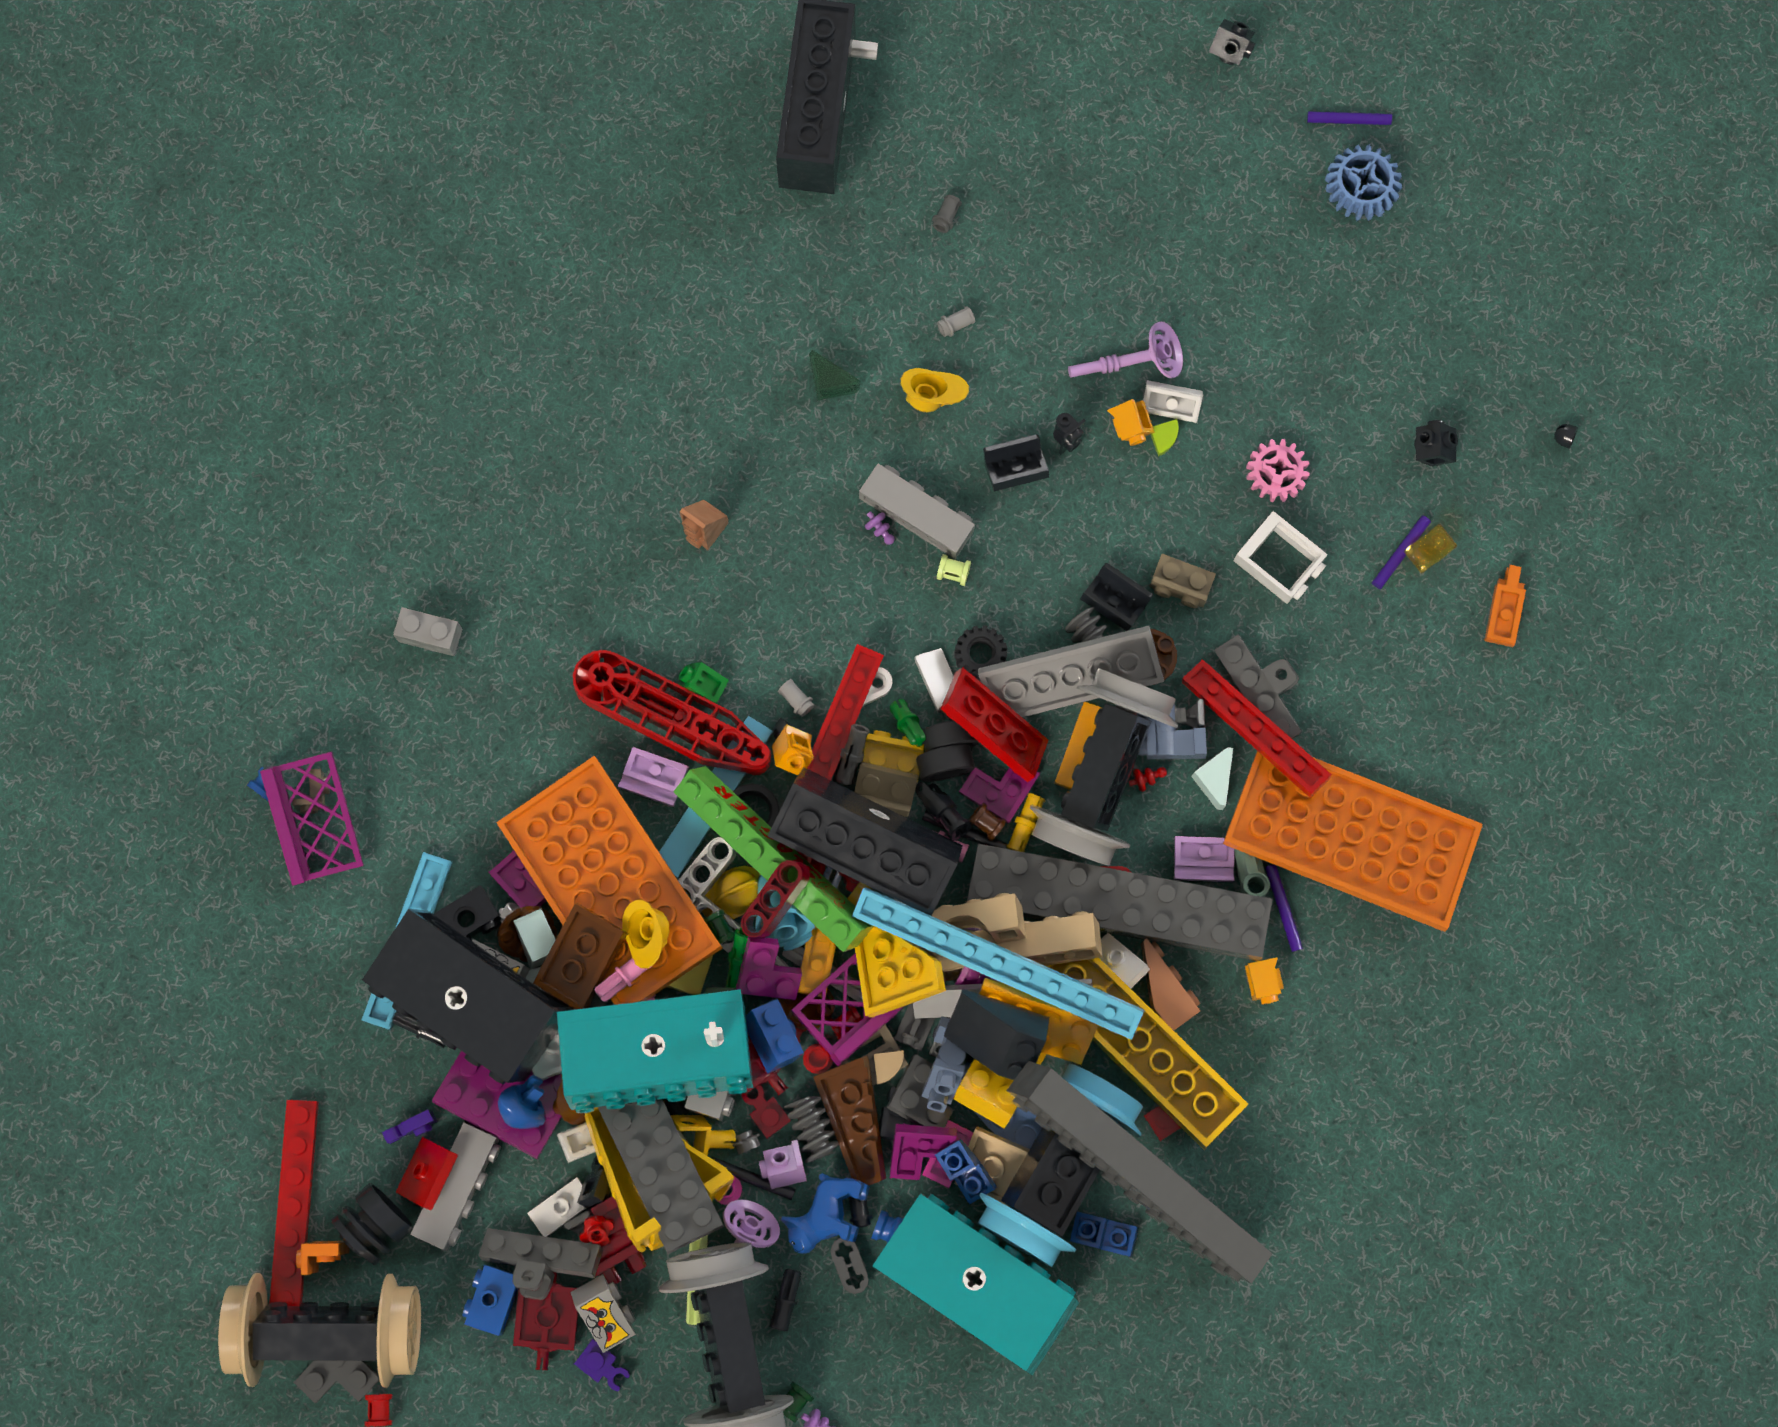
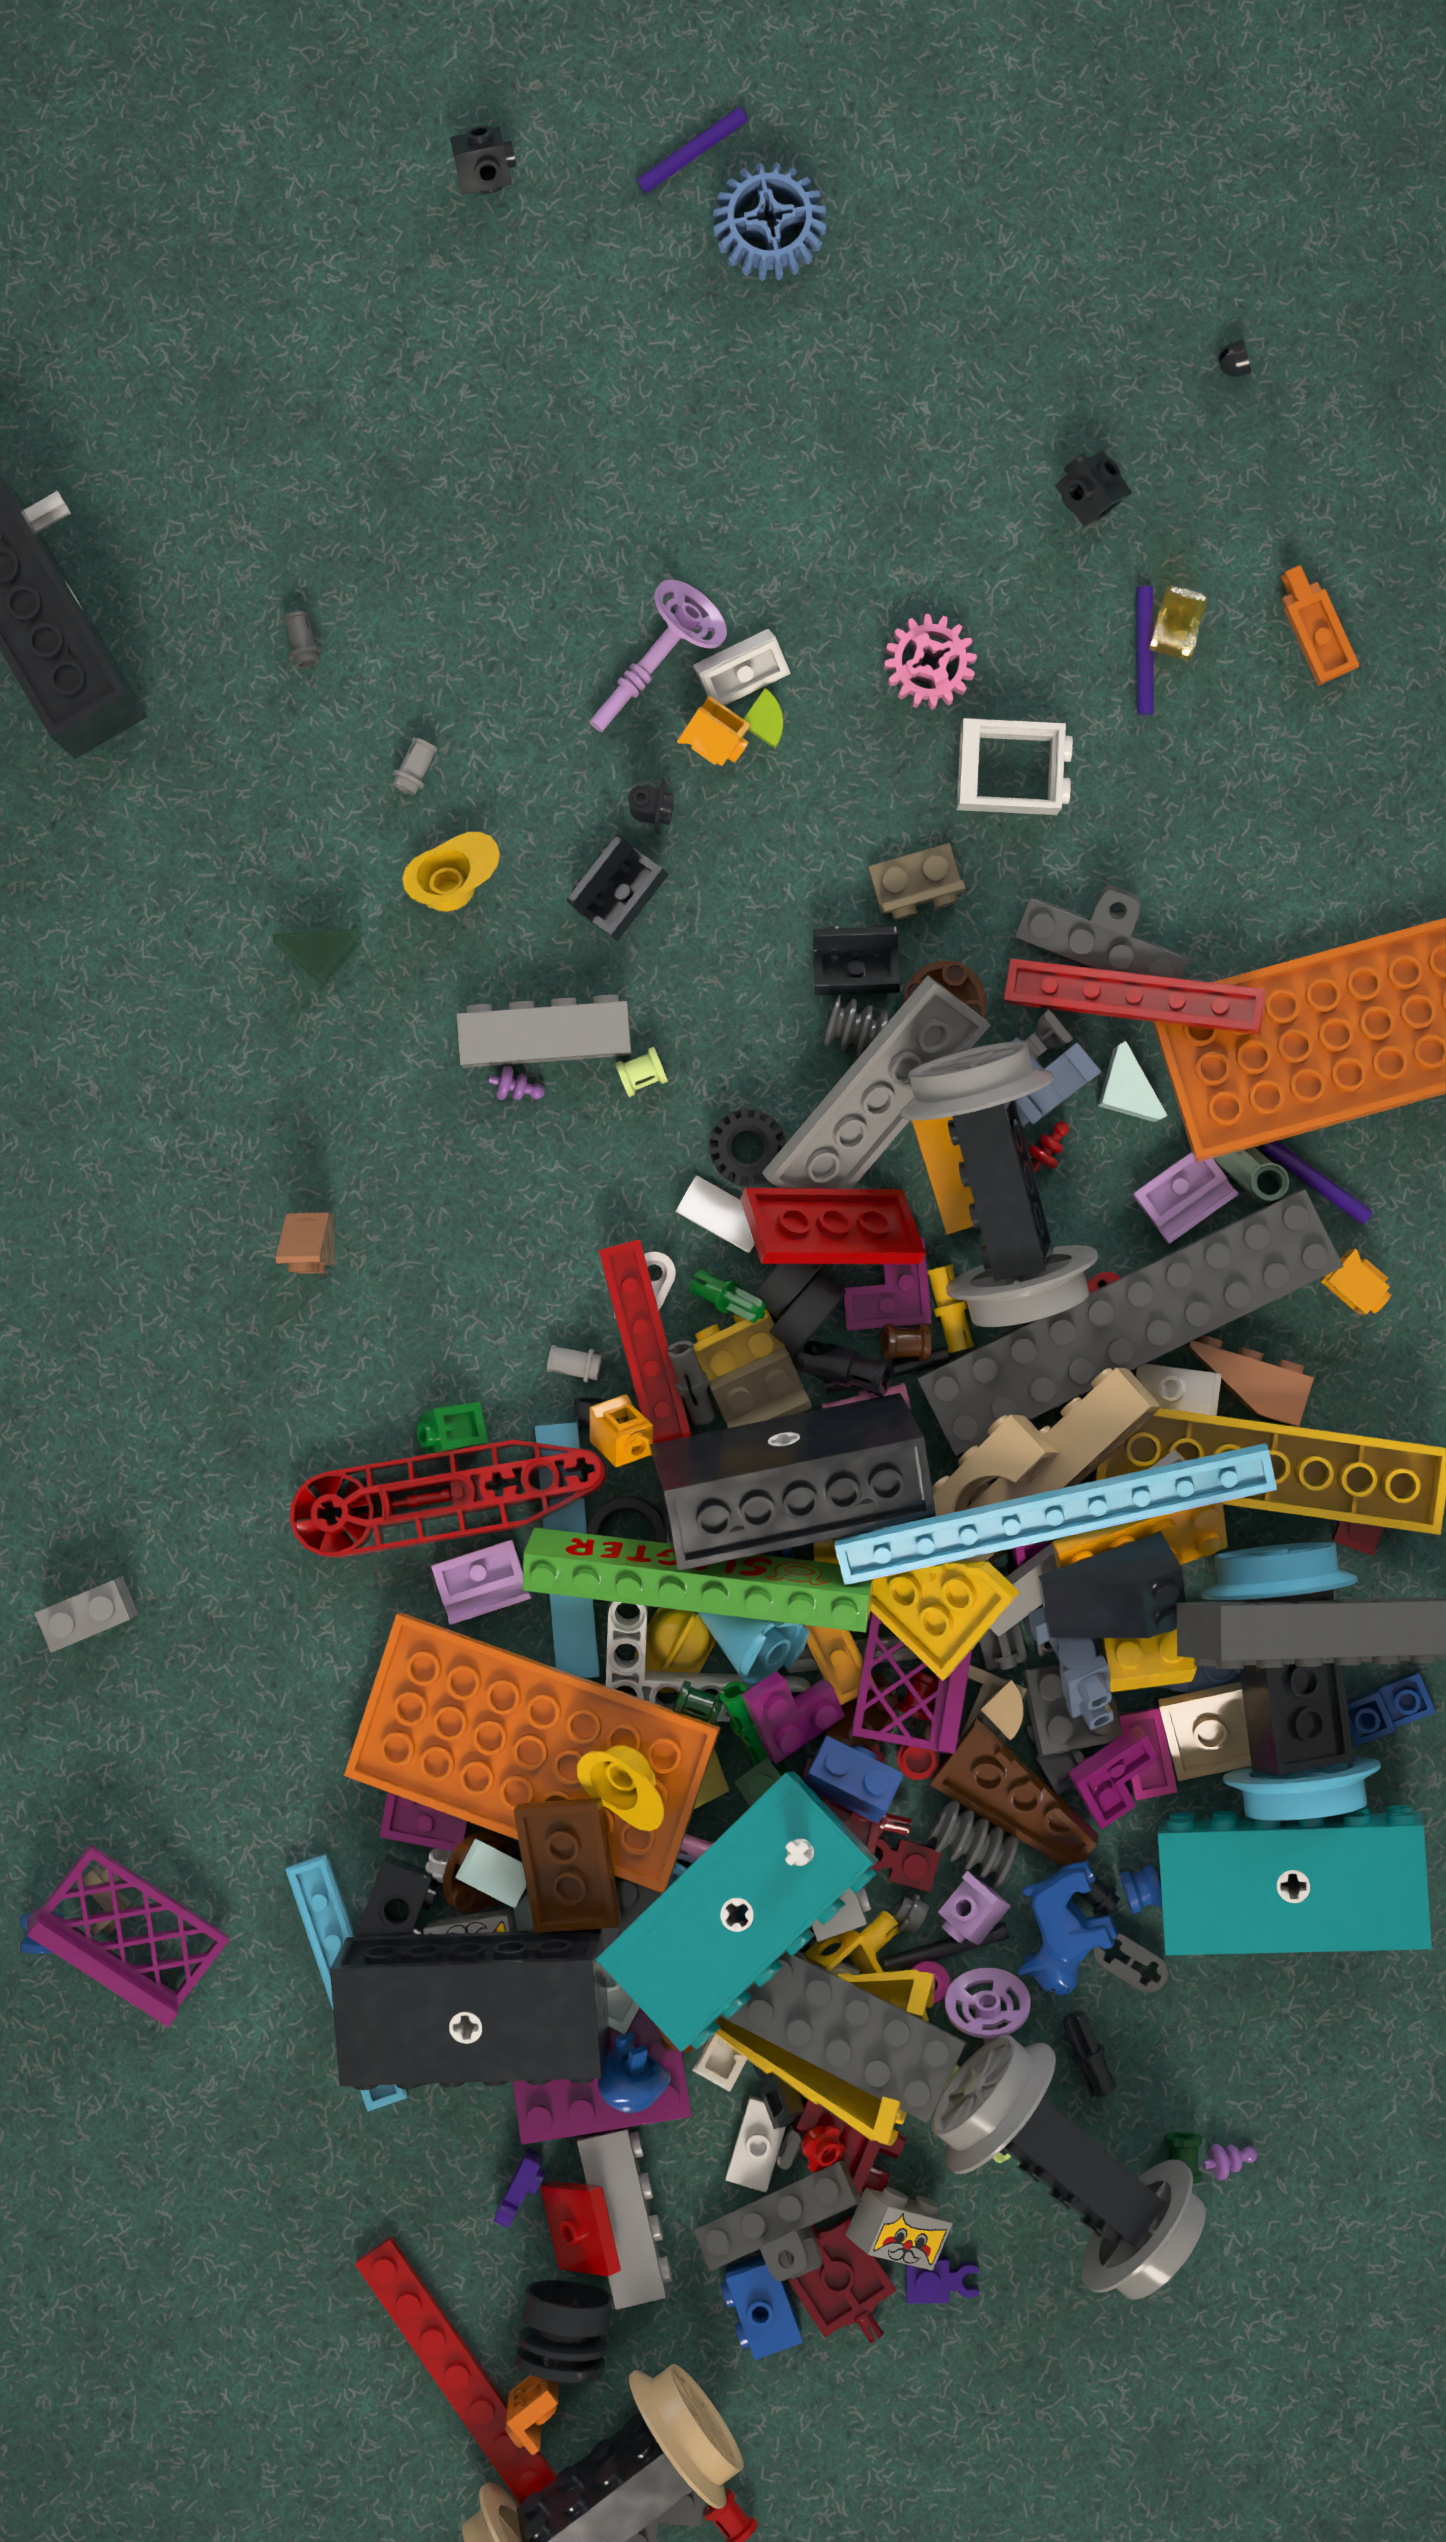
camera: 40 degrees left, 10 degrees up
(618, 980) = (632, 1861): bright pink axle -> none
(762, 906) = (737, 1654): dark red beam -> none
(966, 1170) = (1185, 1760): blue slope -> none

